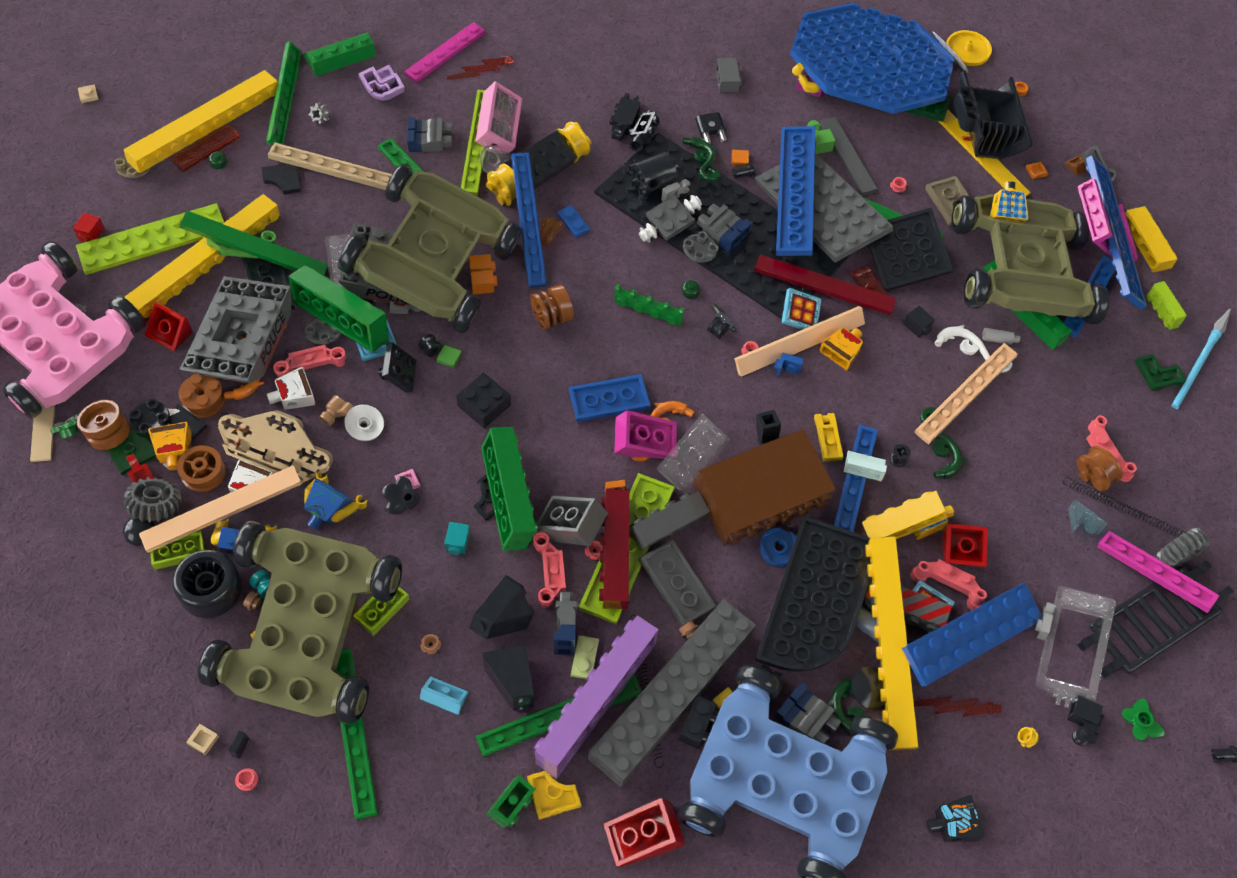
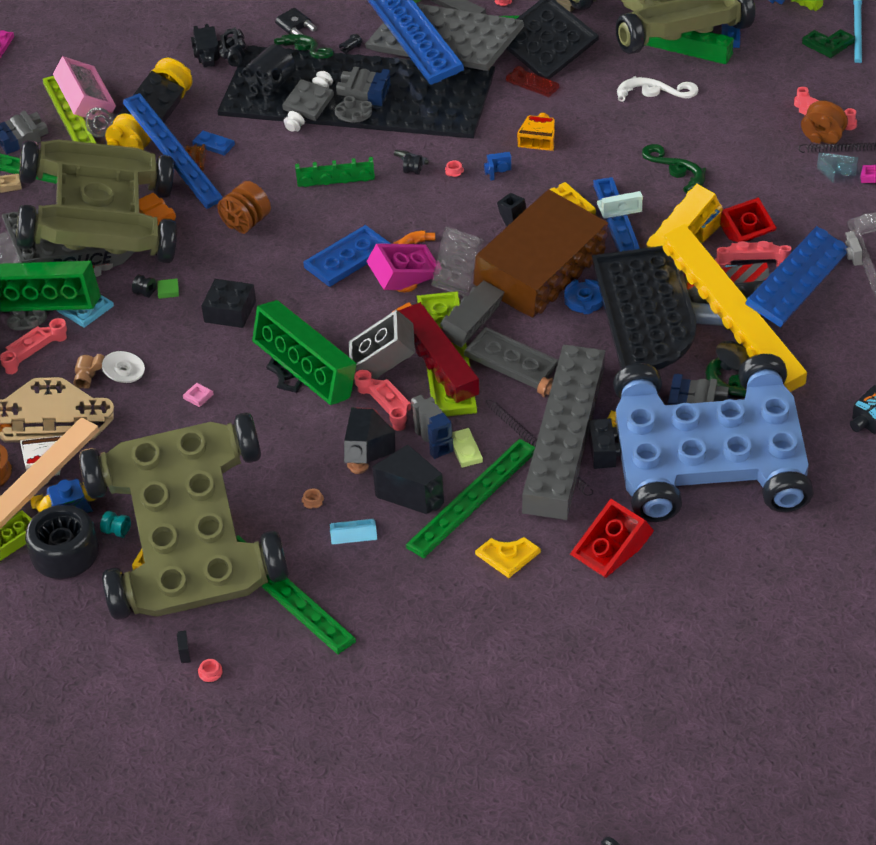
camera: 20 degrees left, 15 degrees down
(202, 739) = (144, 660): tan plate -> none
(252, 601) = (114, 542): nougat plate -> none
(292, 390) = (31, 366): white torso -> none
(328, 502) = (132, 428): blue torso -> none
(376, 614) = (246, 491): lime piece -> none
(397, 494) = (198, 407): black plate -> none
(398, 368) = (126, 311): black plate -> none
(457, 538) = (280, 412): teal brick -> none
(490, 66) = (37, 58): clear red piece -> none
(510, 802) = (475, 569): green brick -> none
(589, 550) = (416, 368): coral plate -> none
(595, 697) = (498, 459): medium lavender brick -> none
(675, 189) = (297, 74): light grey plate -> none
(690, 289) = (365, 148): dark green piece -> none
(740, 157) = (339, 35): orange tile -> none
(798, 341) = (495, 143): light nougat tile -> none
(800, 309) = (481, 120): tile -> none
(825, 285) = (489, 93): dark red tile -> none
(903, 456) = (646, 187): black bush -> none
(919, 322) = (594, 87): black brick -> none
(965, 393) = (672, 121): light nougat tile -> none
(969, 705) = (830, 334): clear red piece -> none
(999, 336) = (672, 71): light grey cylinder -> none

